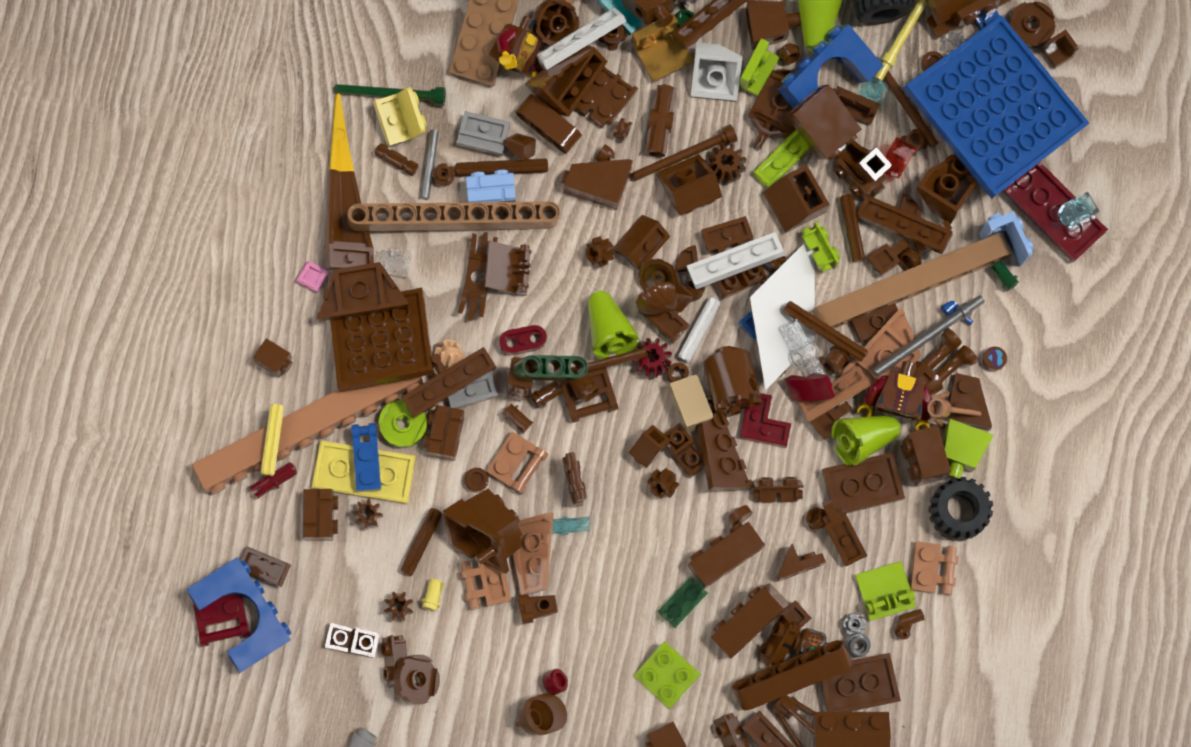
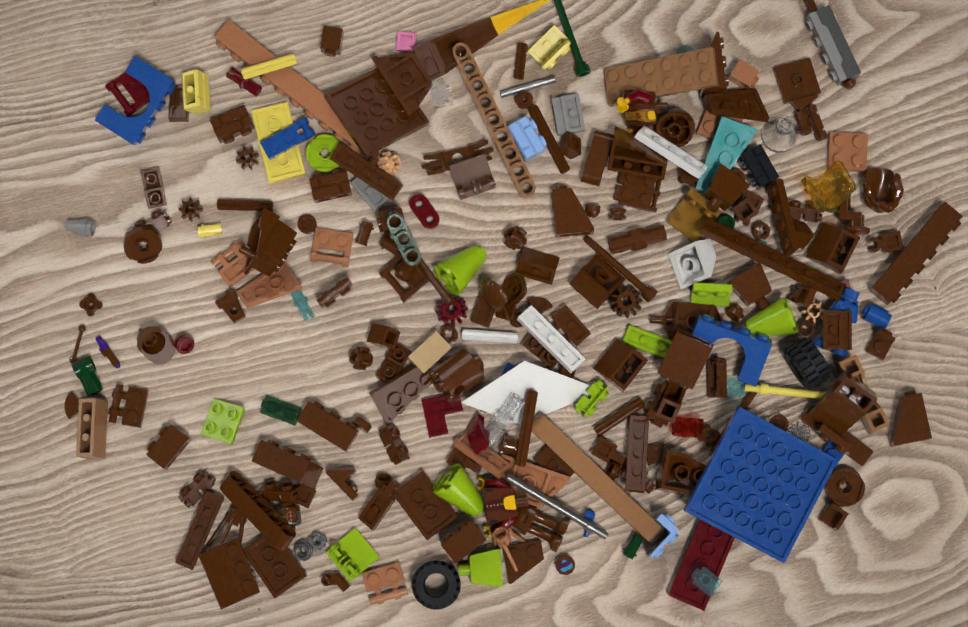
camera: 75 degrees right, 5 degrees up
(261, 539) = (196, 92): none -> light yellow brick

